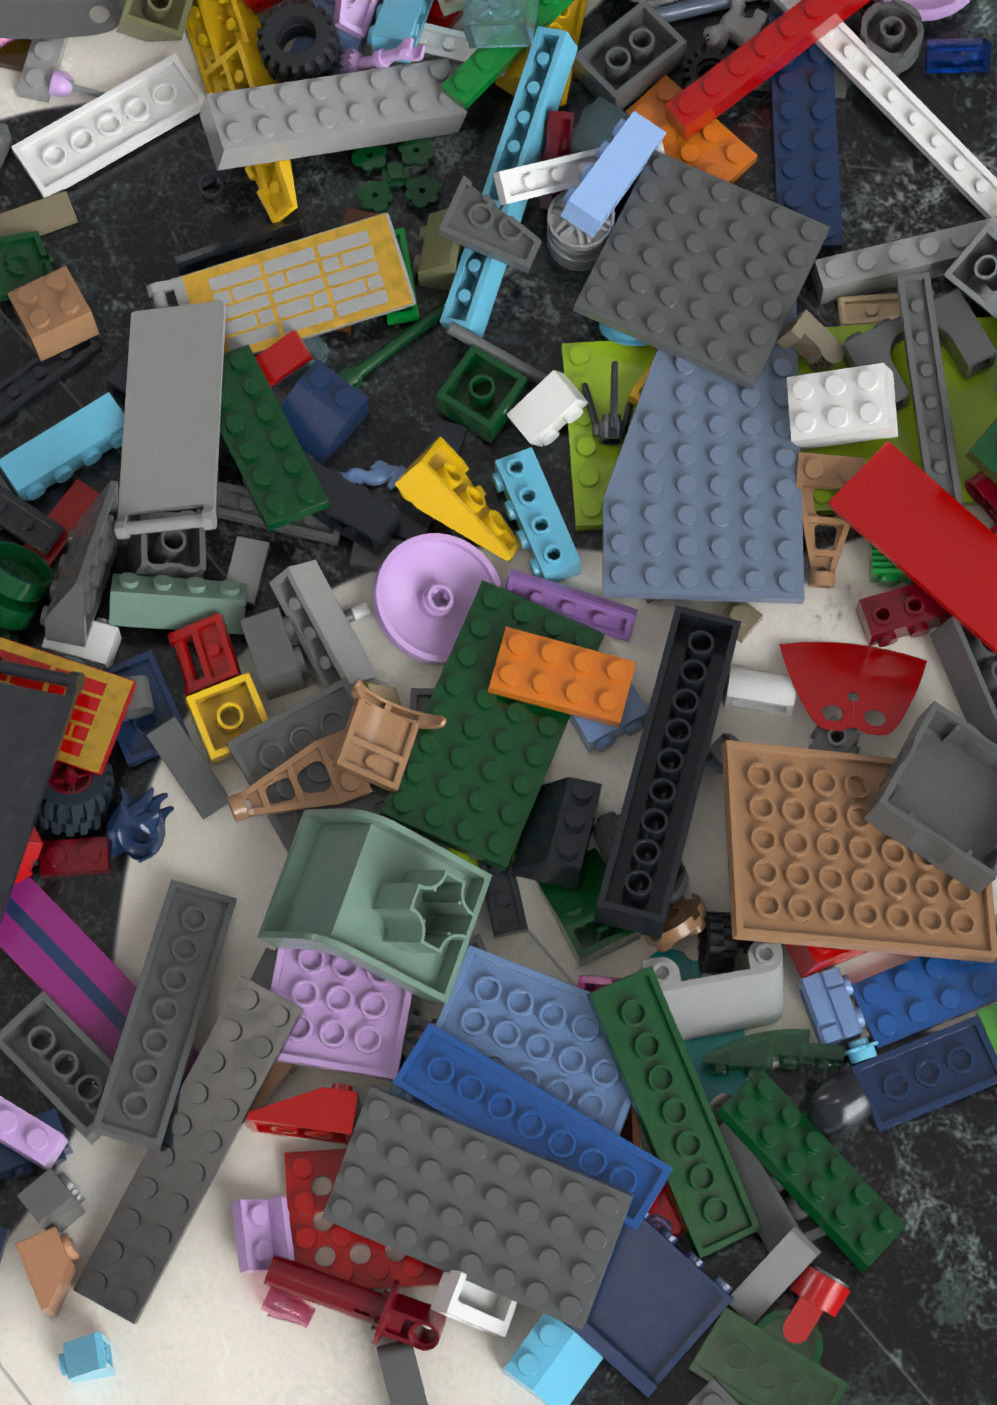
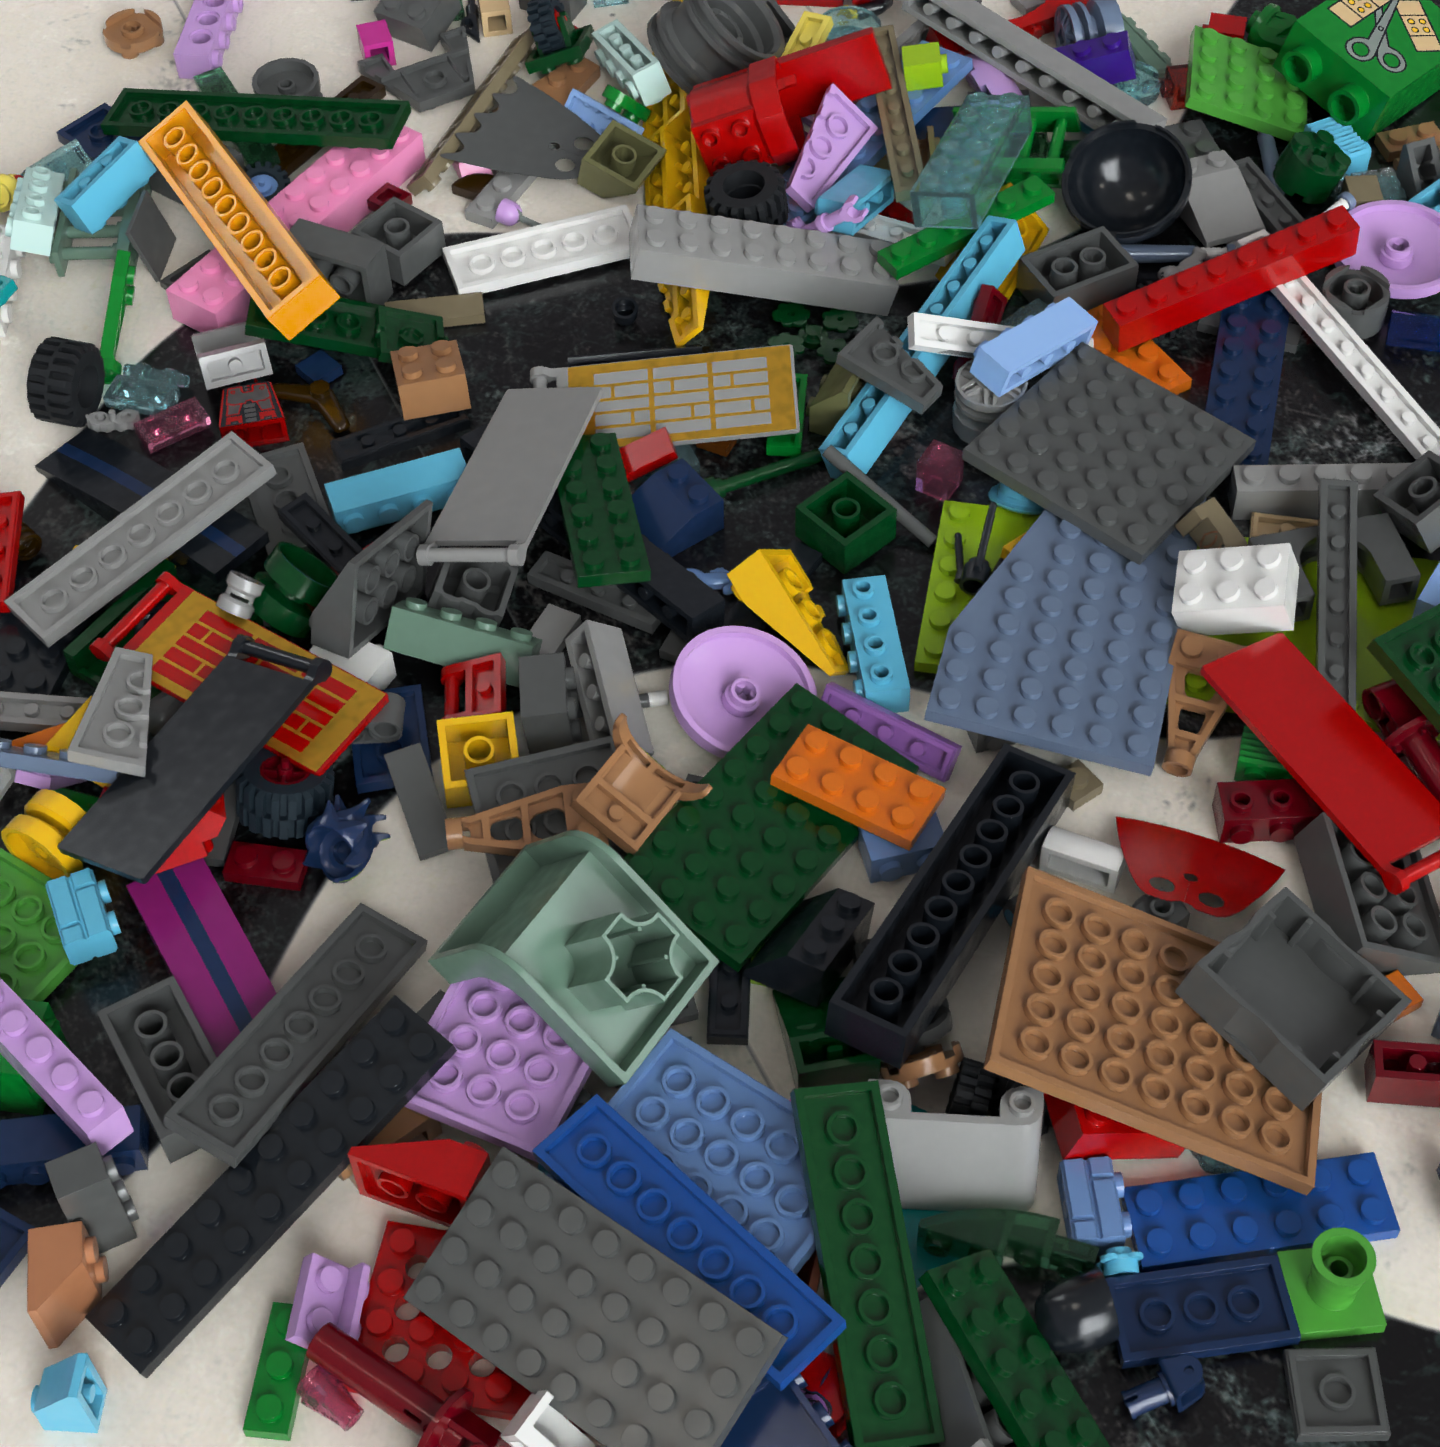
camera: 15 degrees right, 20 degrees down
(240, 1299) = (278, 1374): none -> green plate
(548, 409) = (911, 546): white brick -> none
(551, 314) = (939, 470): none -> clear pink brick
(916, 1141) = (1173, 1385): none -> dark blue piece

